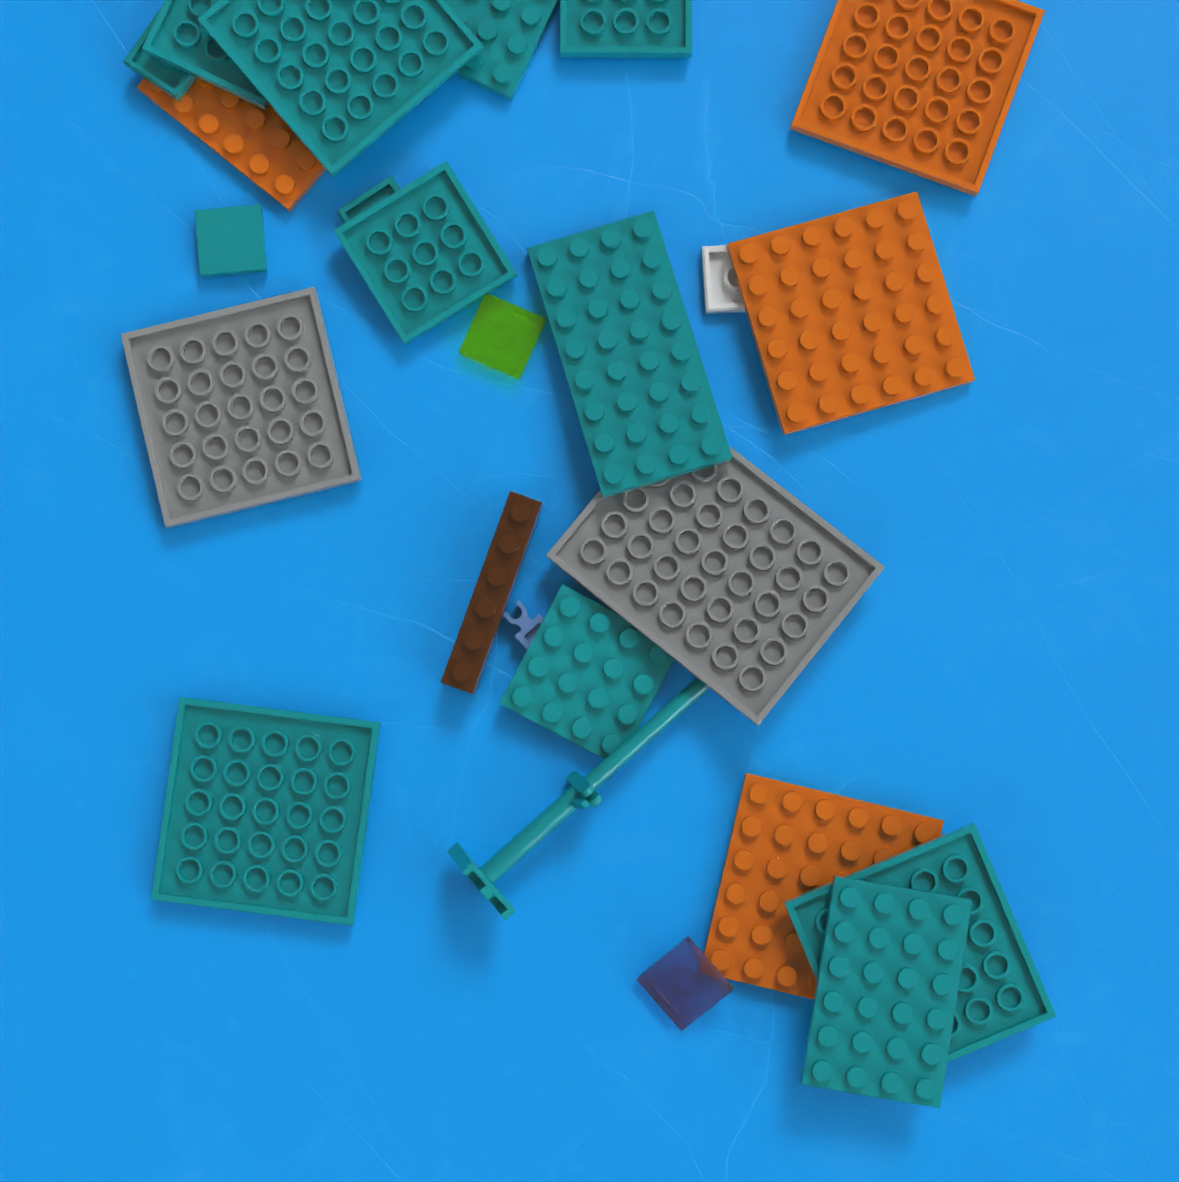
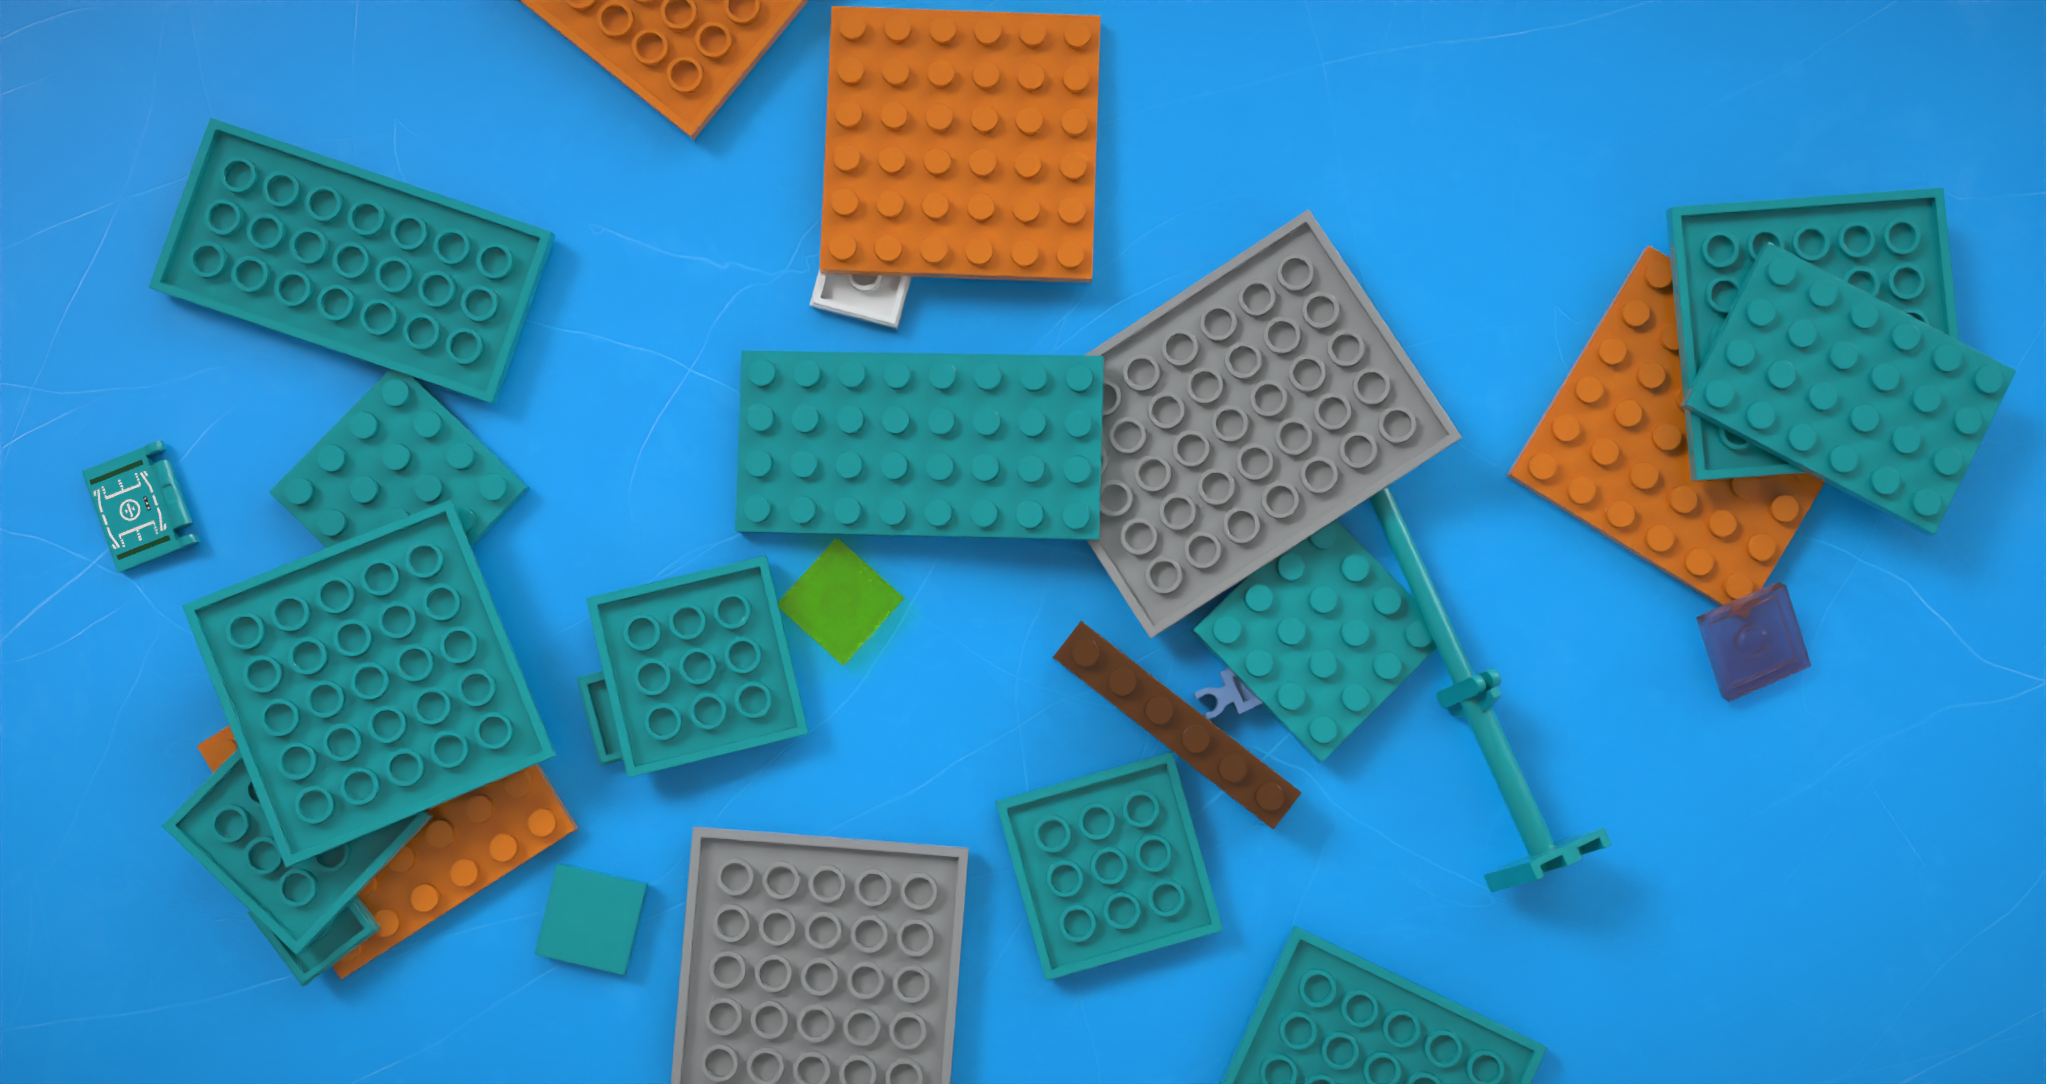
camera: 80 degrees left, 0 degrees up
(380, 580) = (1109, 865): none -> teal plate

